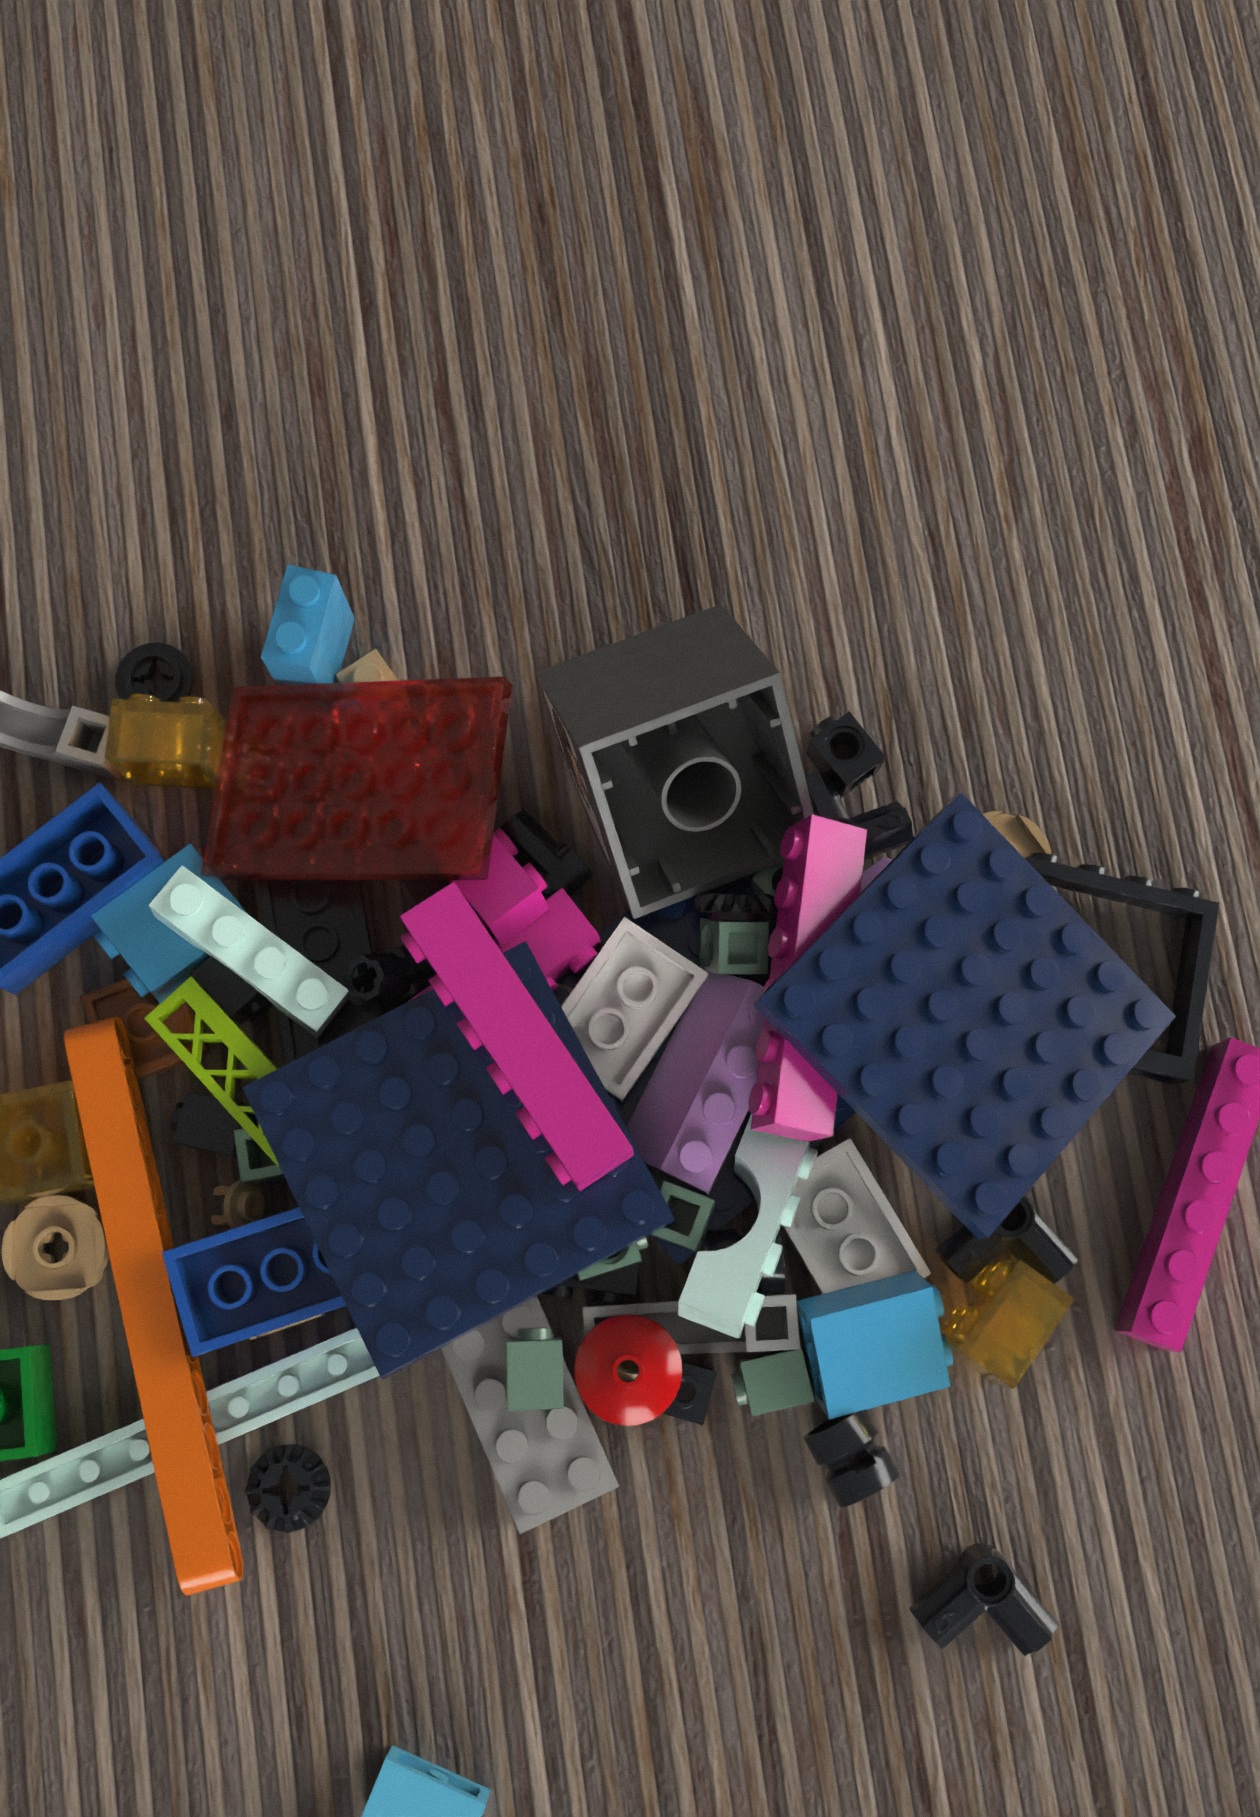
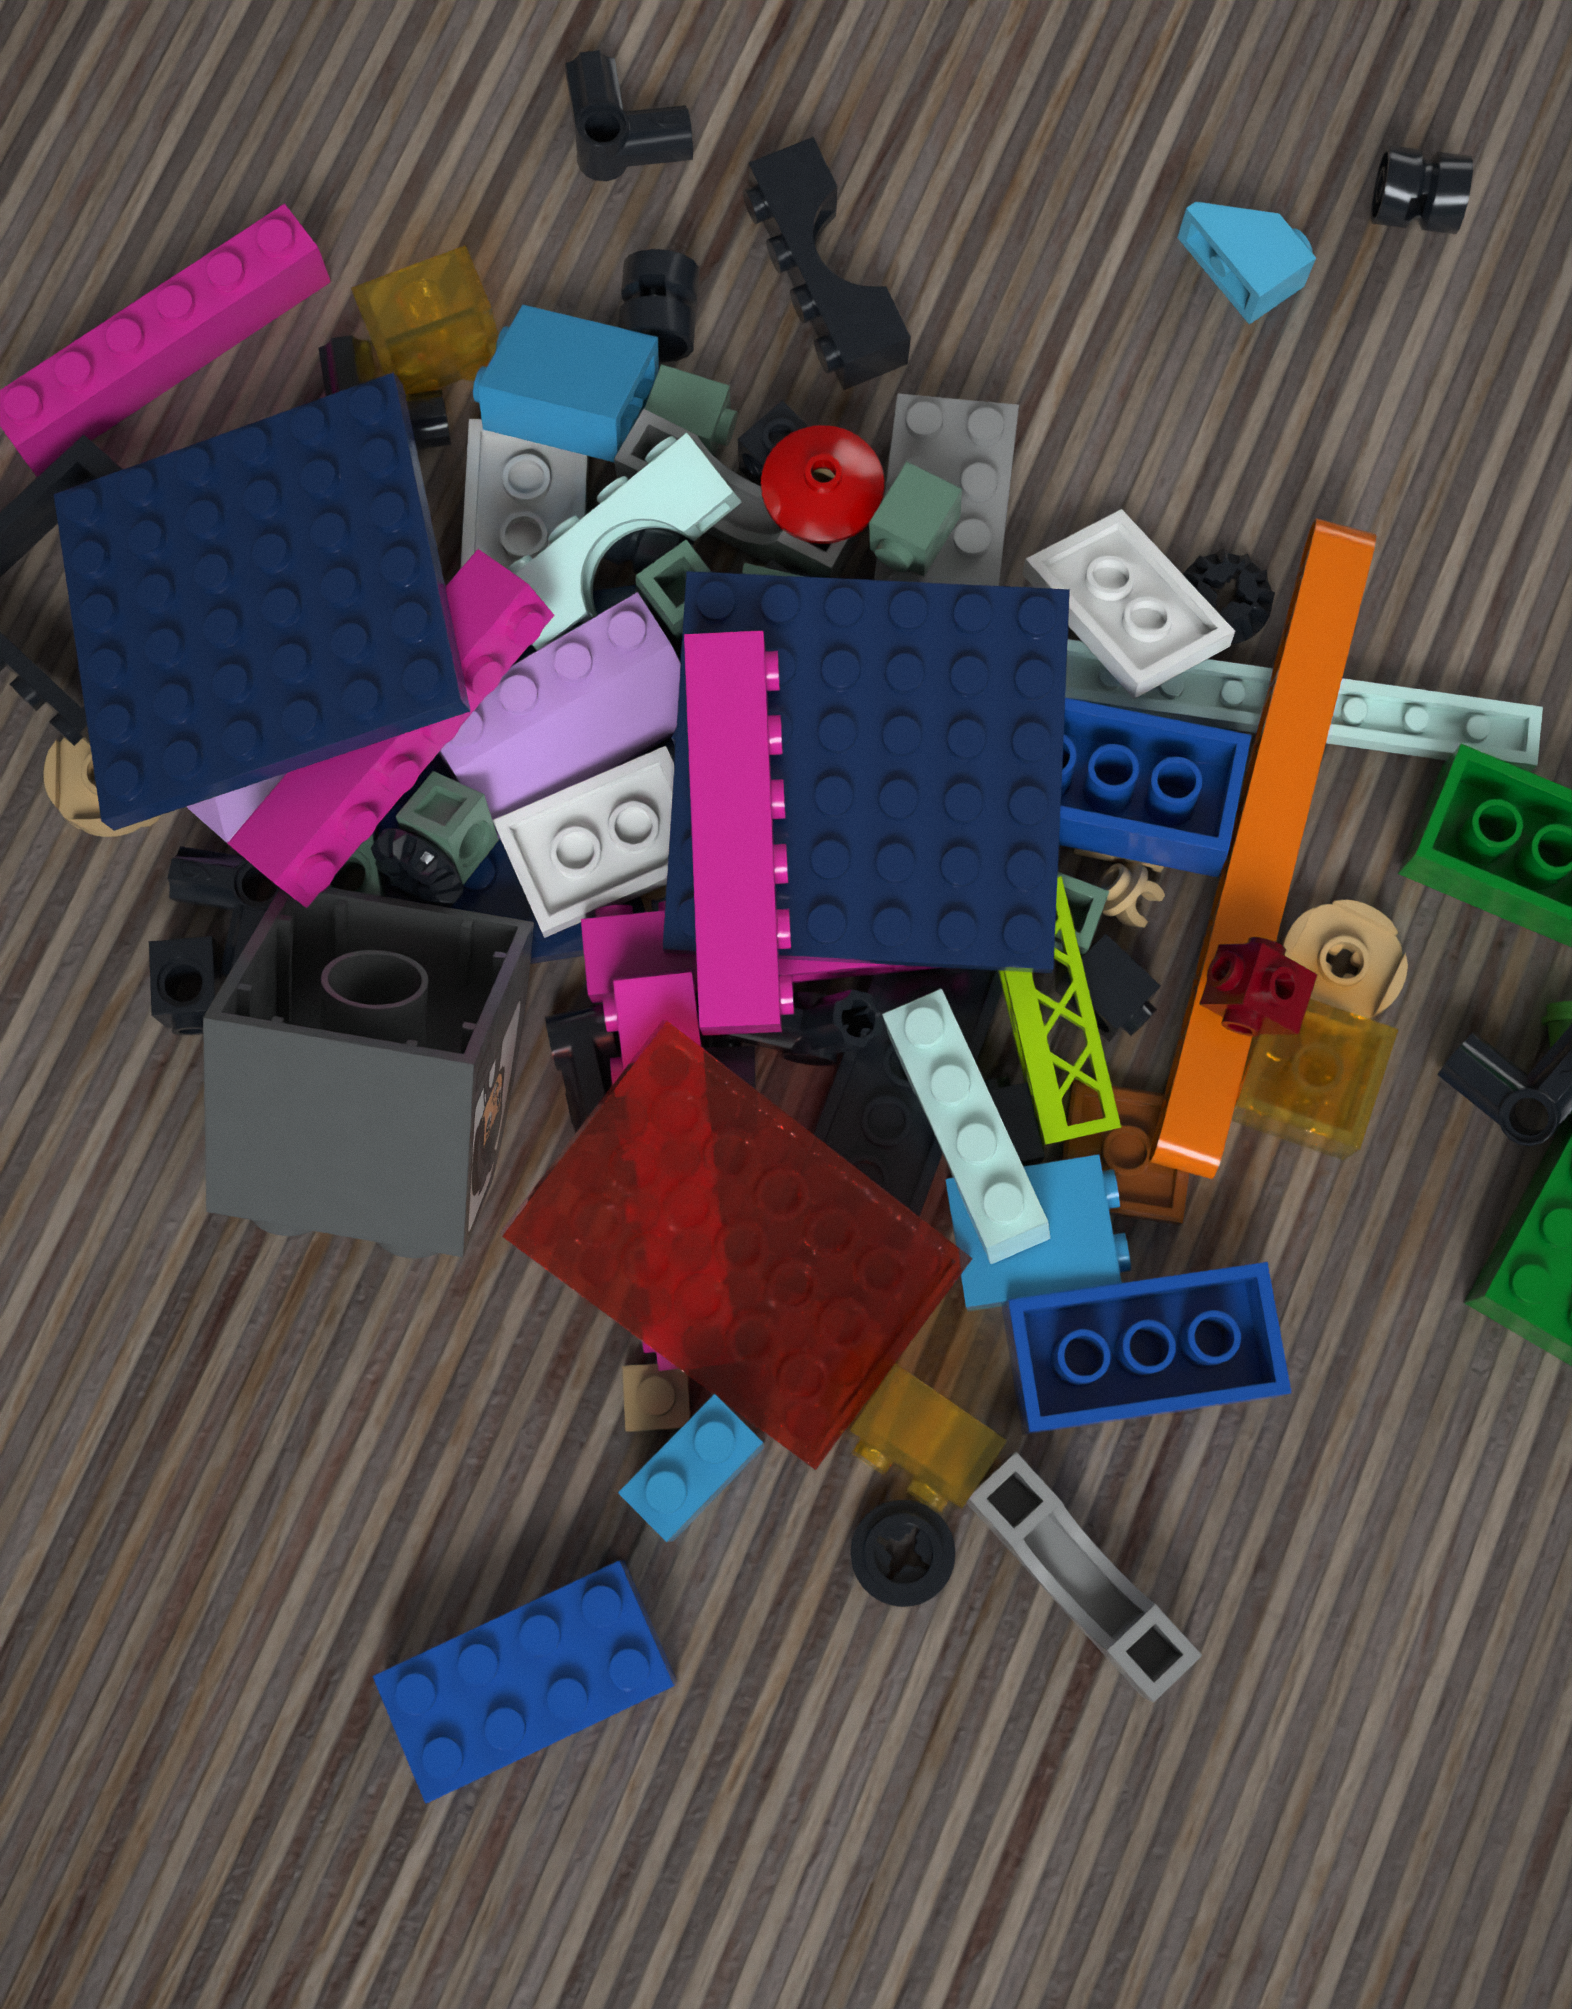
camera: 150 degrees left, 0 degrees up
(88, 1161) = (1258, 988): none -> dark red brick
(345, 469) = (524, 1680): none -> blue brick
(352, 1427) = (1130, 603): none -> white plate
(807, 1619) = (854, 323): none -> black arch

